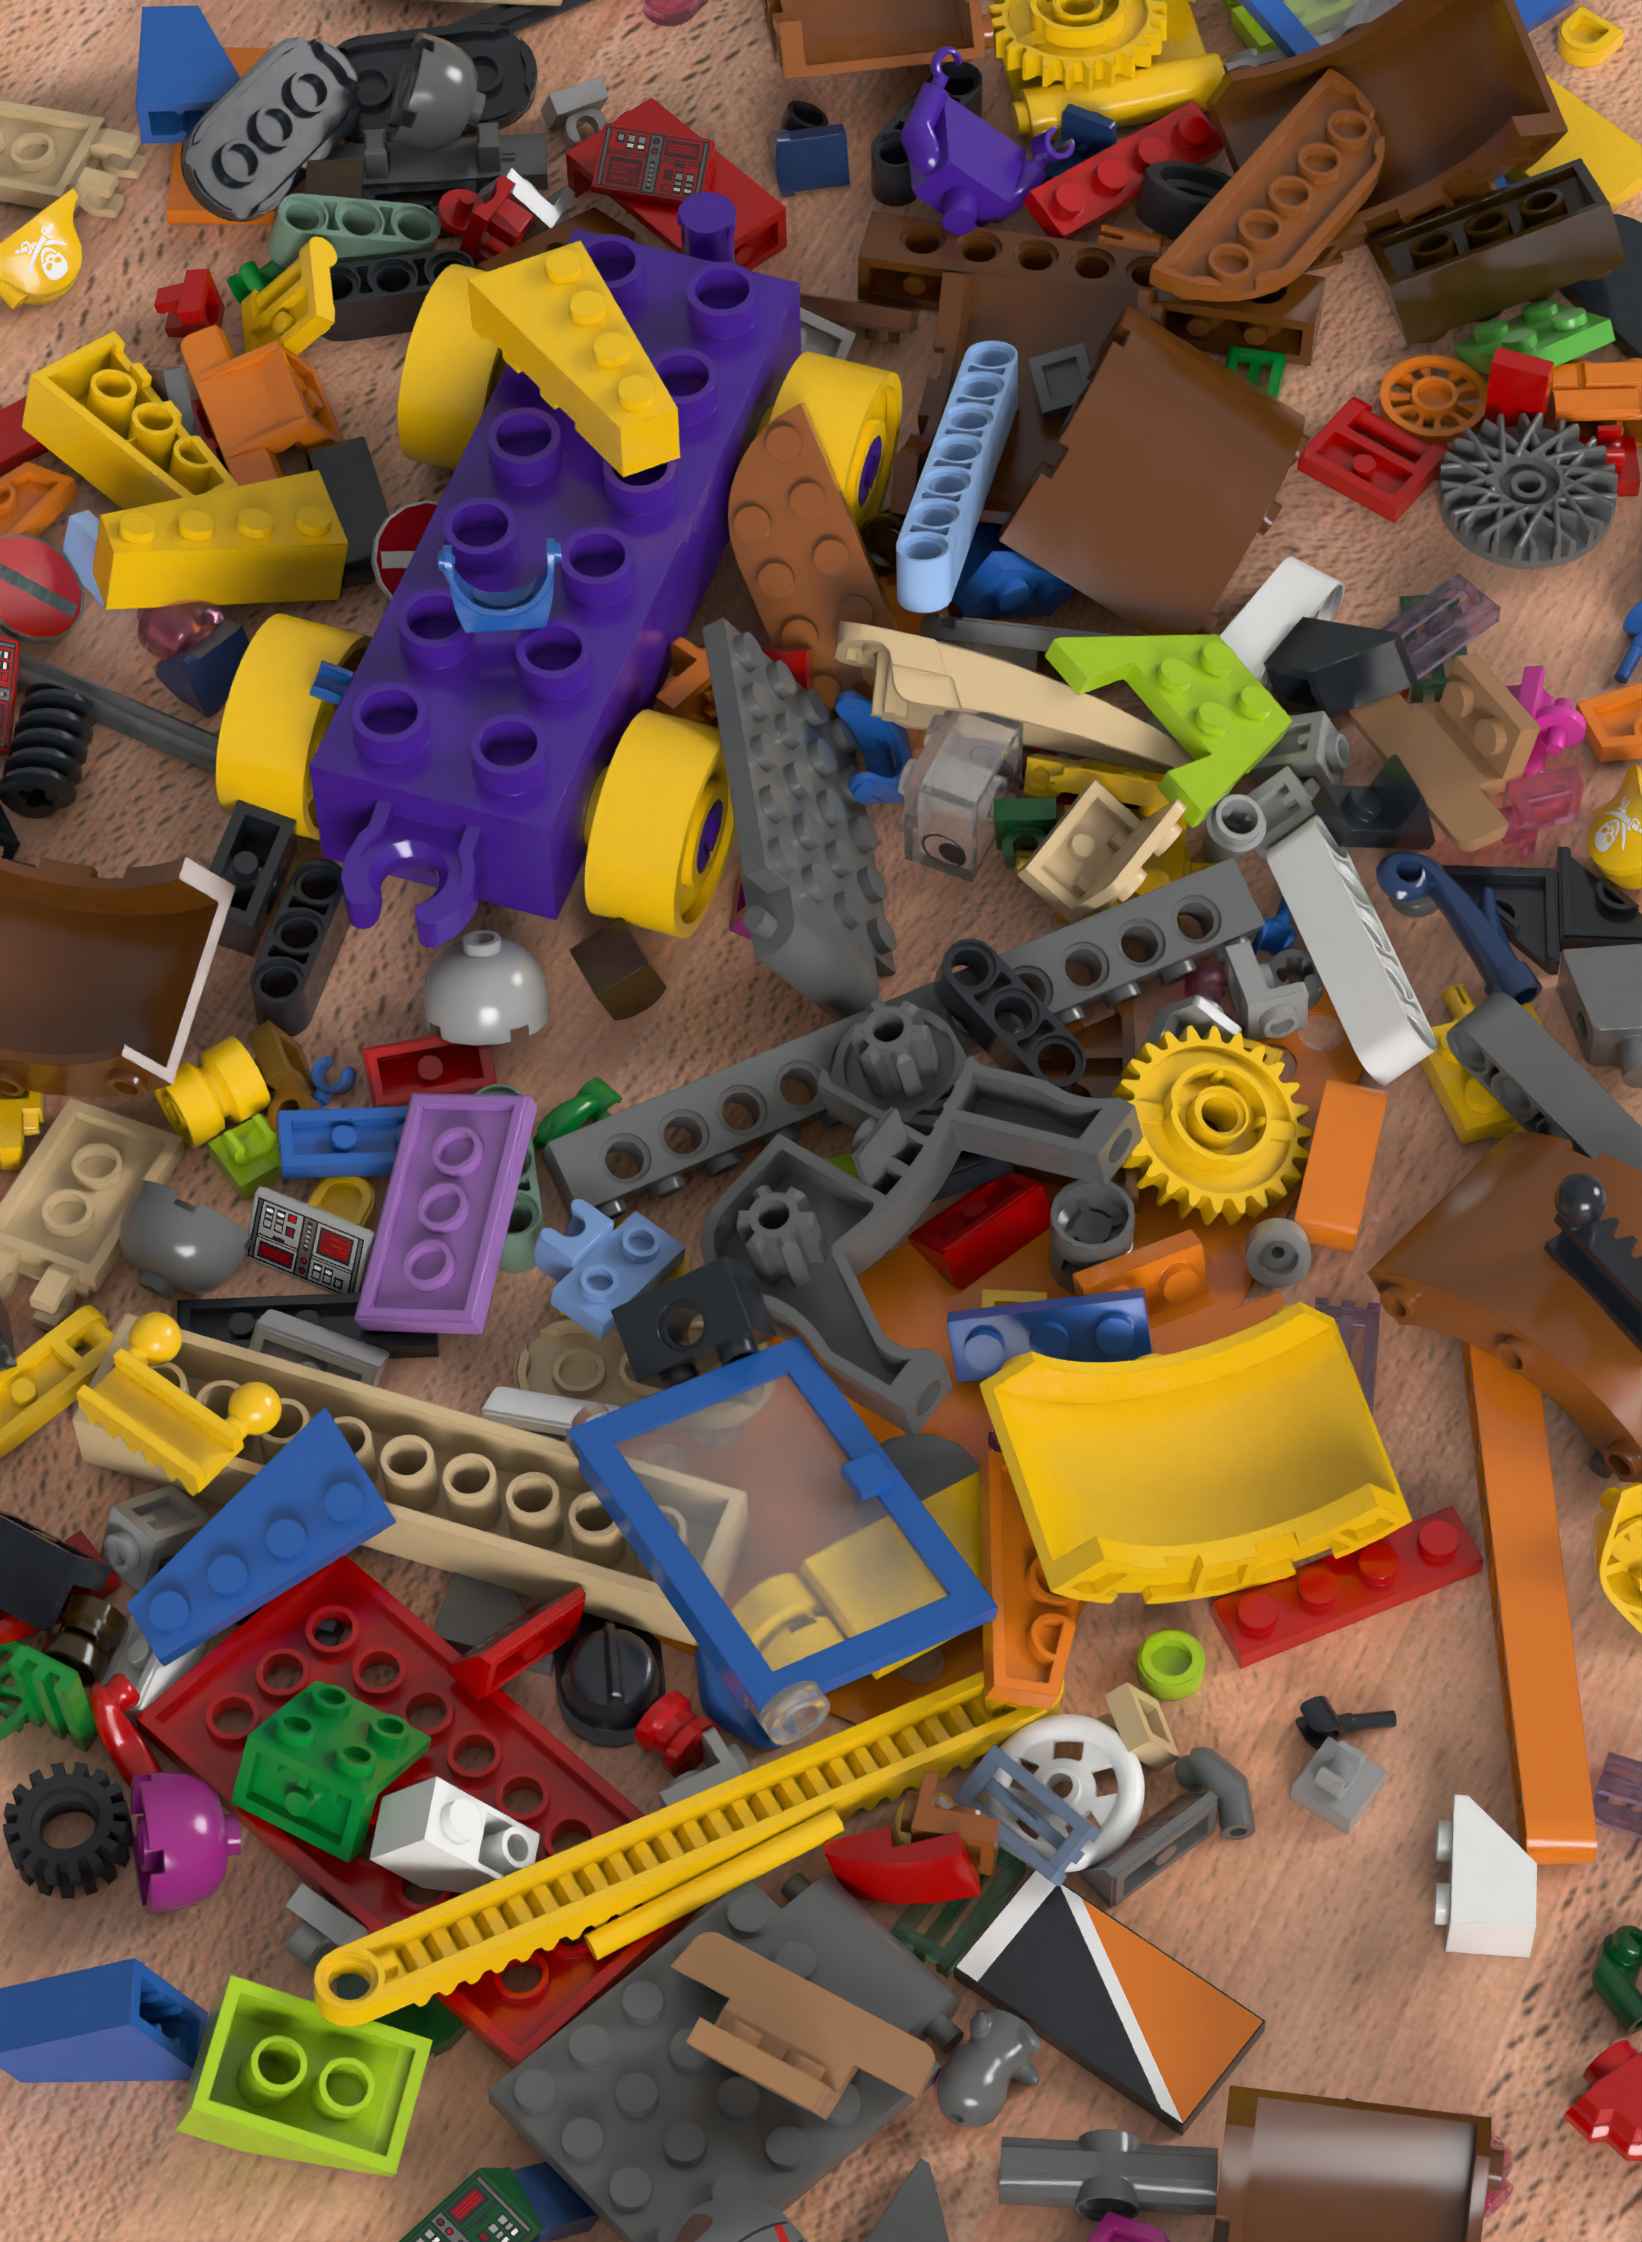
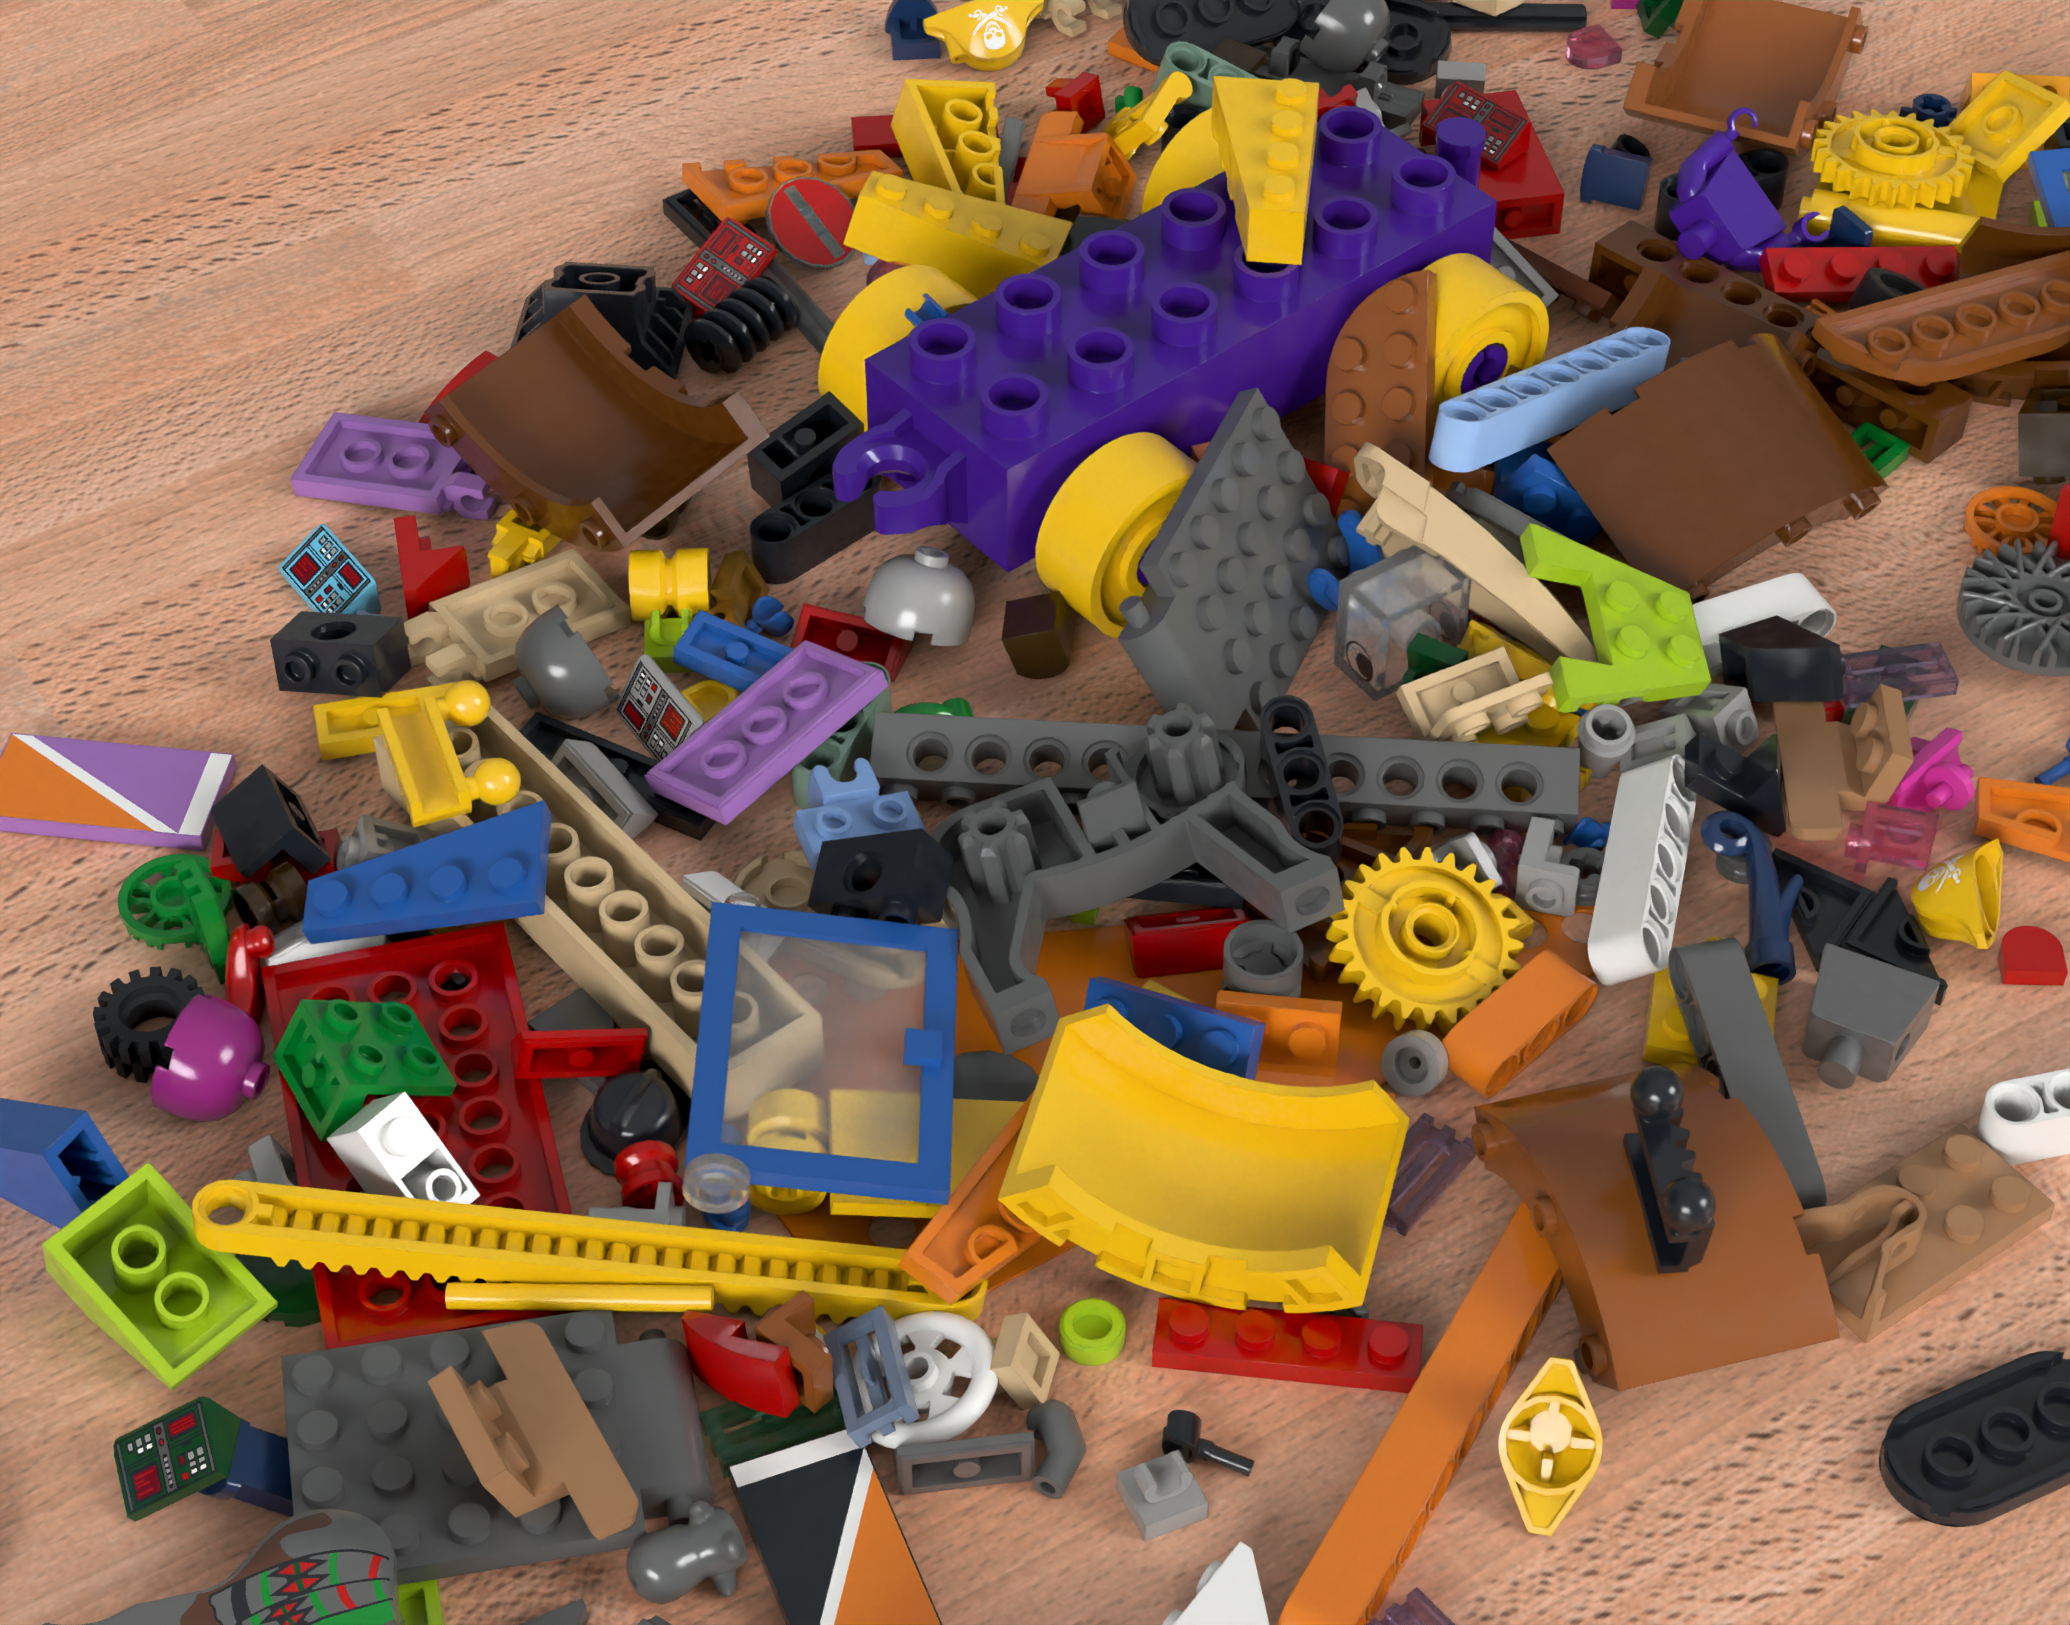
camera: 30 degrees right, 10 degrees down
(502, 611) = (1062, 299): blue helmet -> none
(1368, 470) = (1916, 545): red plate -> none

